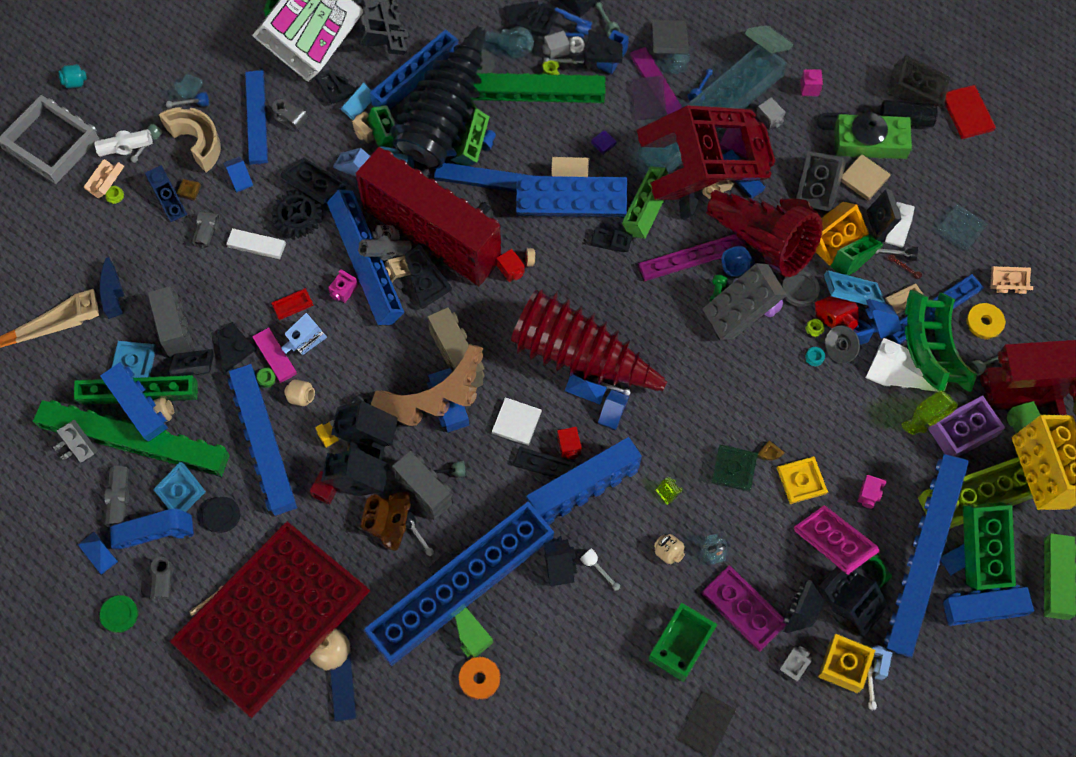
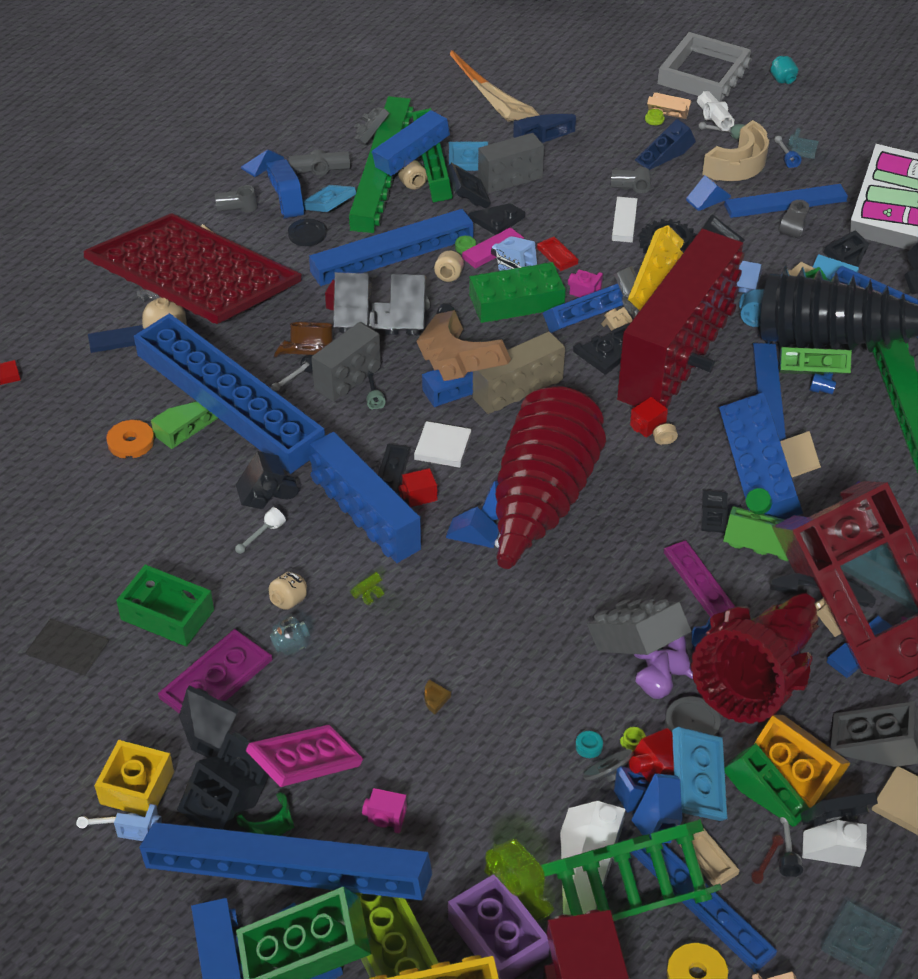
camera: 85 degrees right, 20 degrees down
(118, 614) = (200, 181): green piece -> none
(188, 189) = (677, 165): pearl gold tile -> none
(346, 341) = (516, 292): none -> green brick
(367, 220) = (658, 261): none -> yellow hinge
(626, 203) = (759, 501): none -> green tile
(734, 467) = (405, 654): clear green plate -> none
(796, 662) = (142, 729): light grey bracket -> none
(802, 480) = (398, 734): yellow tile -> none

